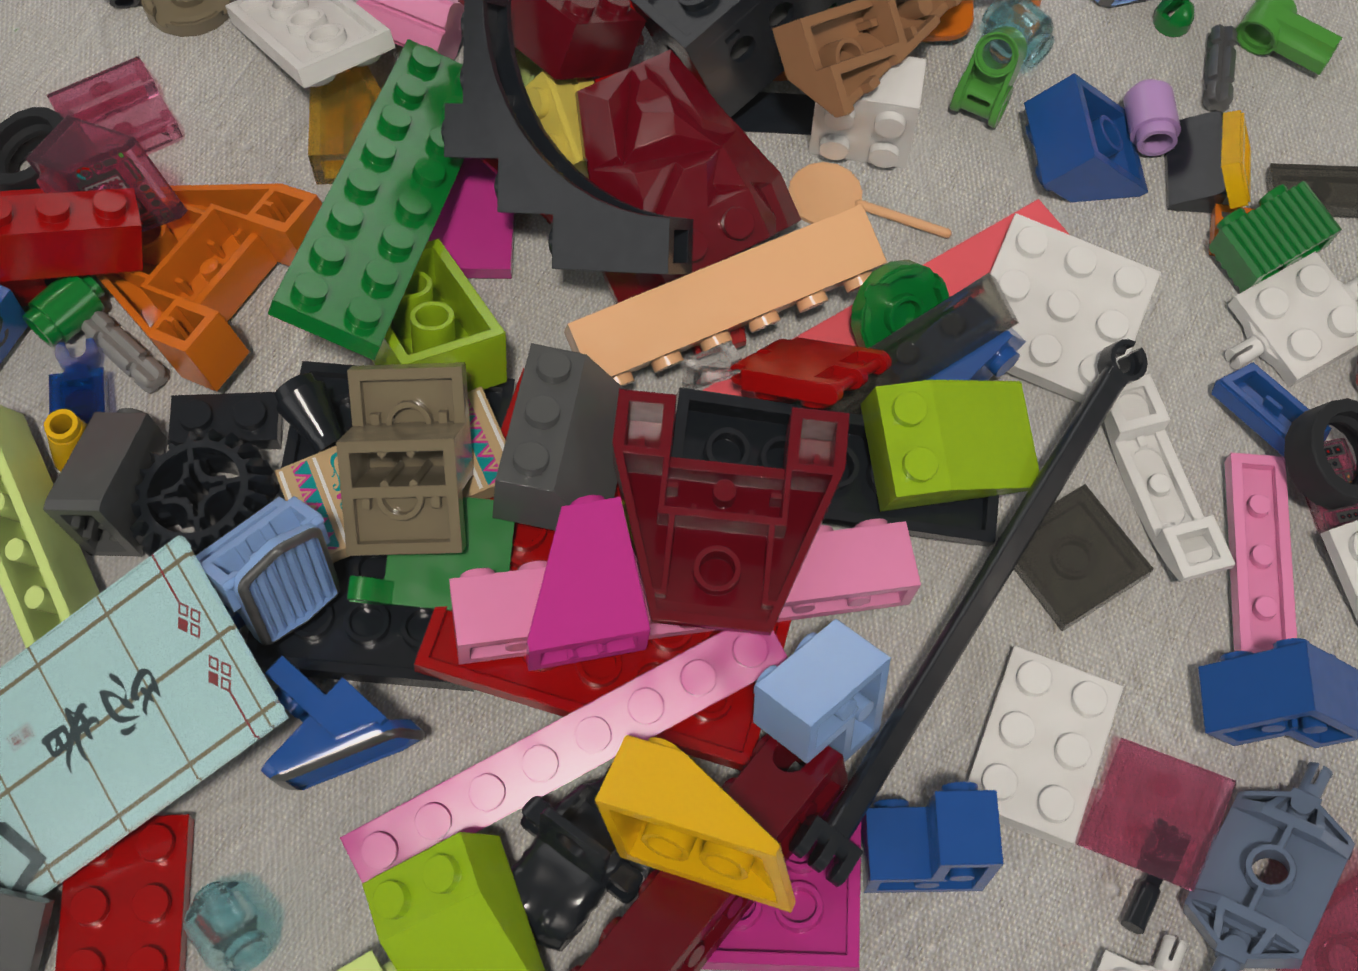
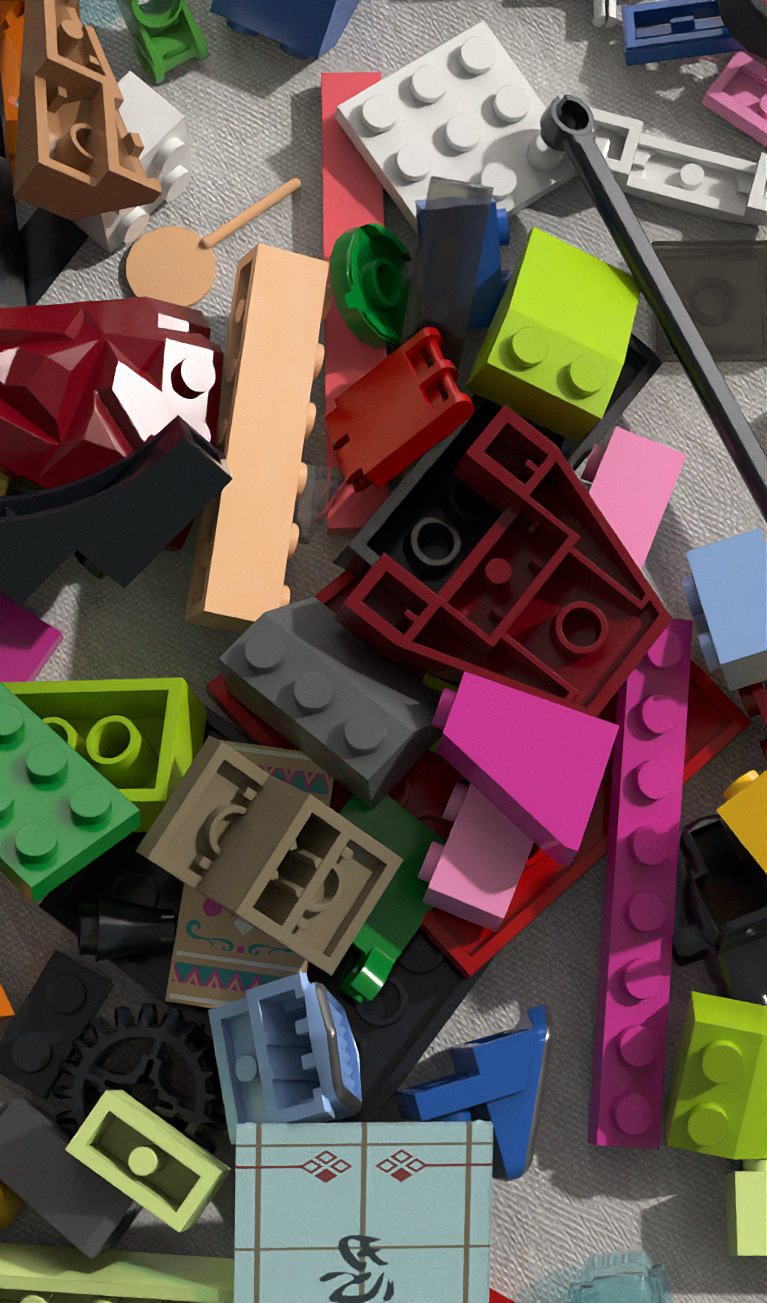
camera: 60 degrees left, 10 degrees up
(135, 504) = (148, 1159): none -> yellowish green brick

